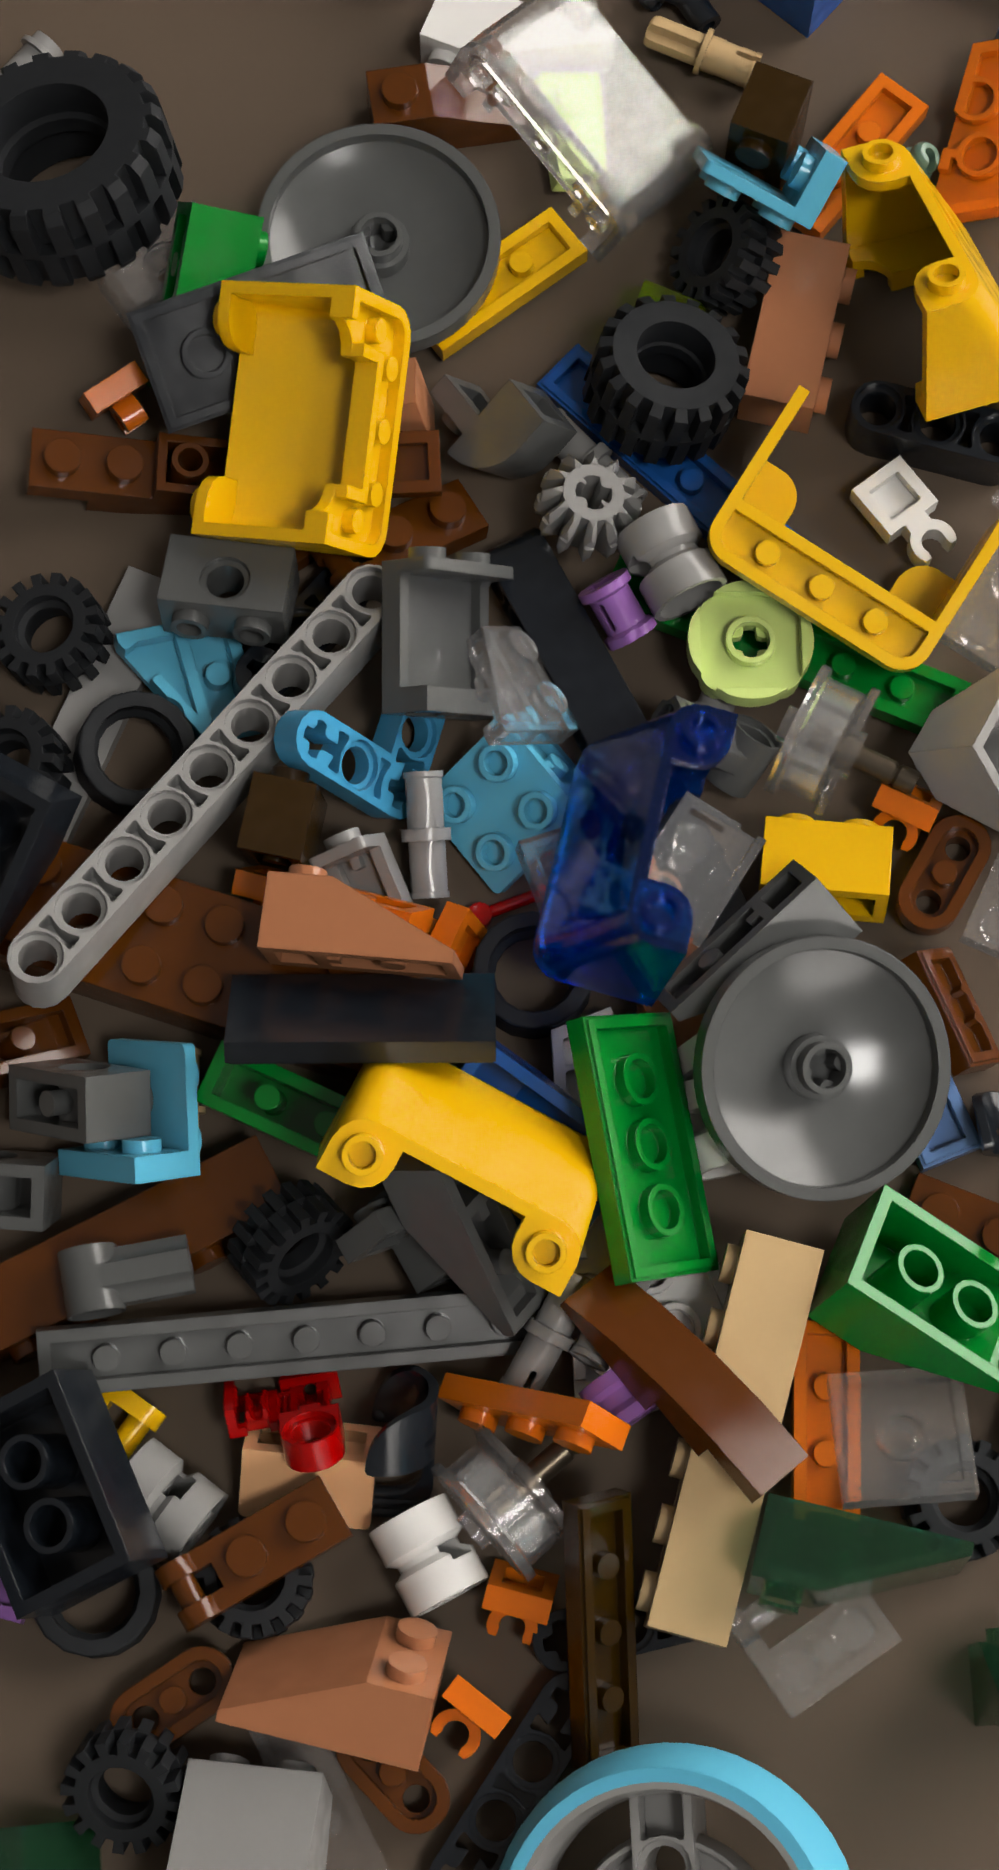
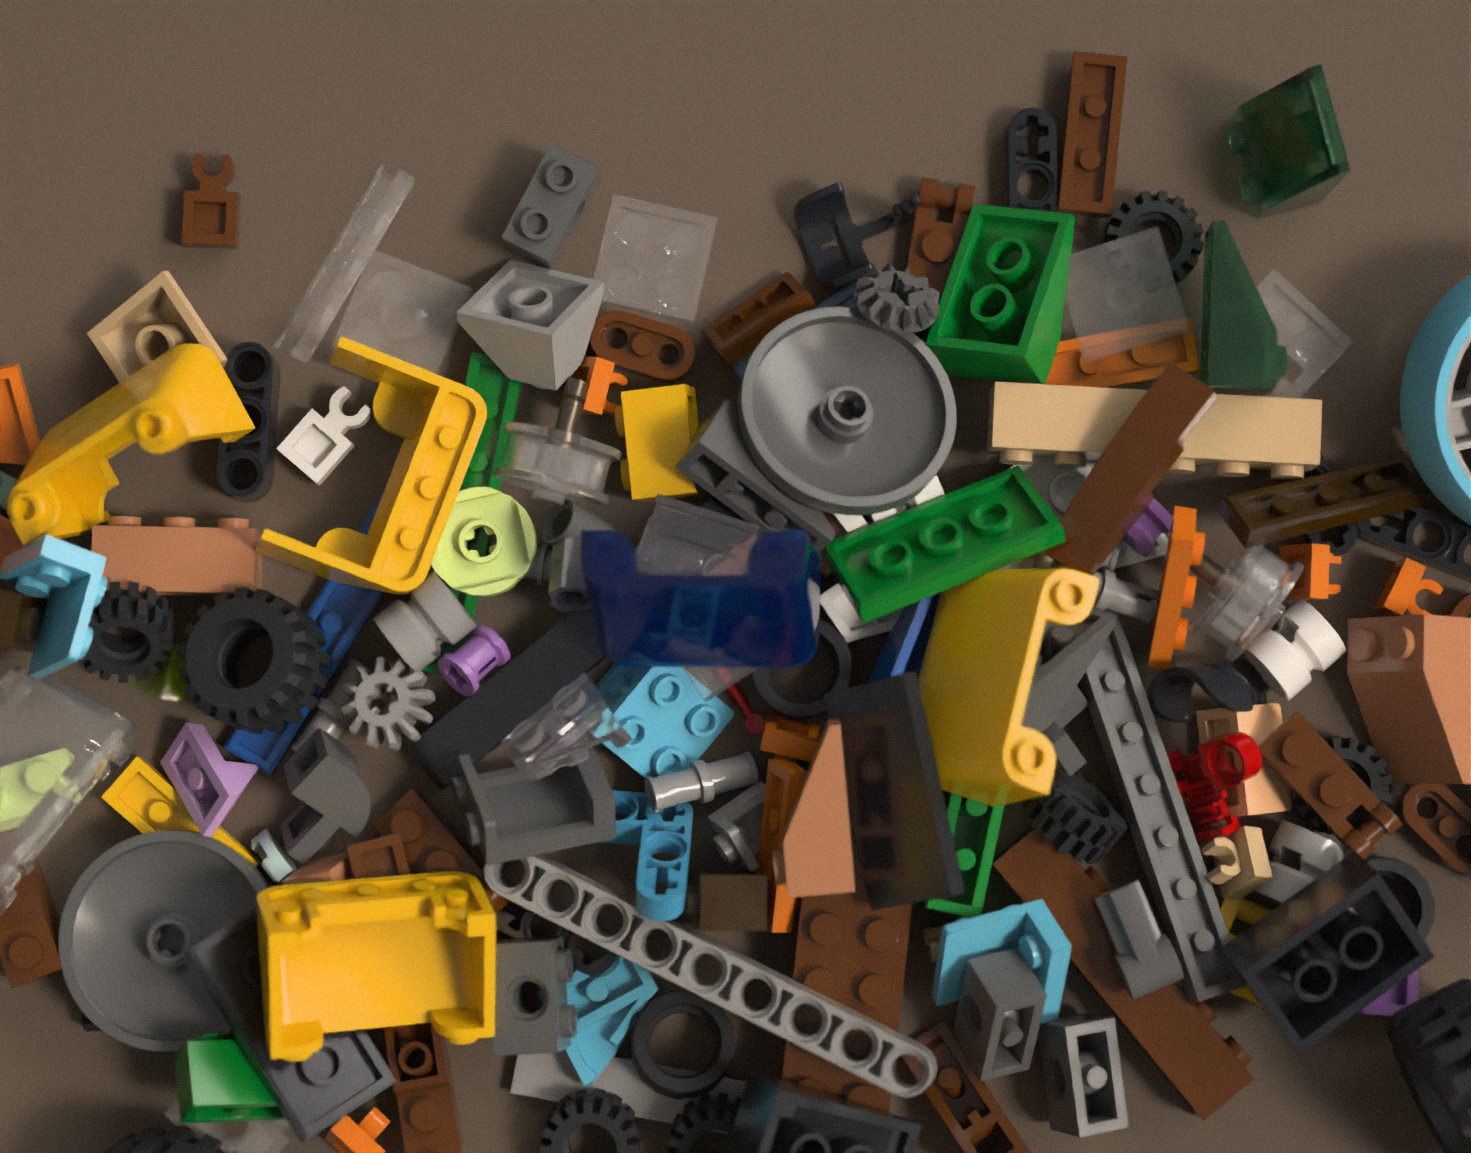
camera: 100 degrees left, 10 degrees up
(188, 1429) = (1239, 862): none -> tan tile
(437, 364) = (275, 858): none -> light aqua tile
(539, 311) = (204, 778): none -> lavender slope
(940, 1138) = (886, 309): none -> dark grey gear

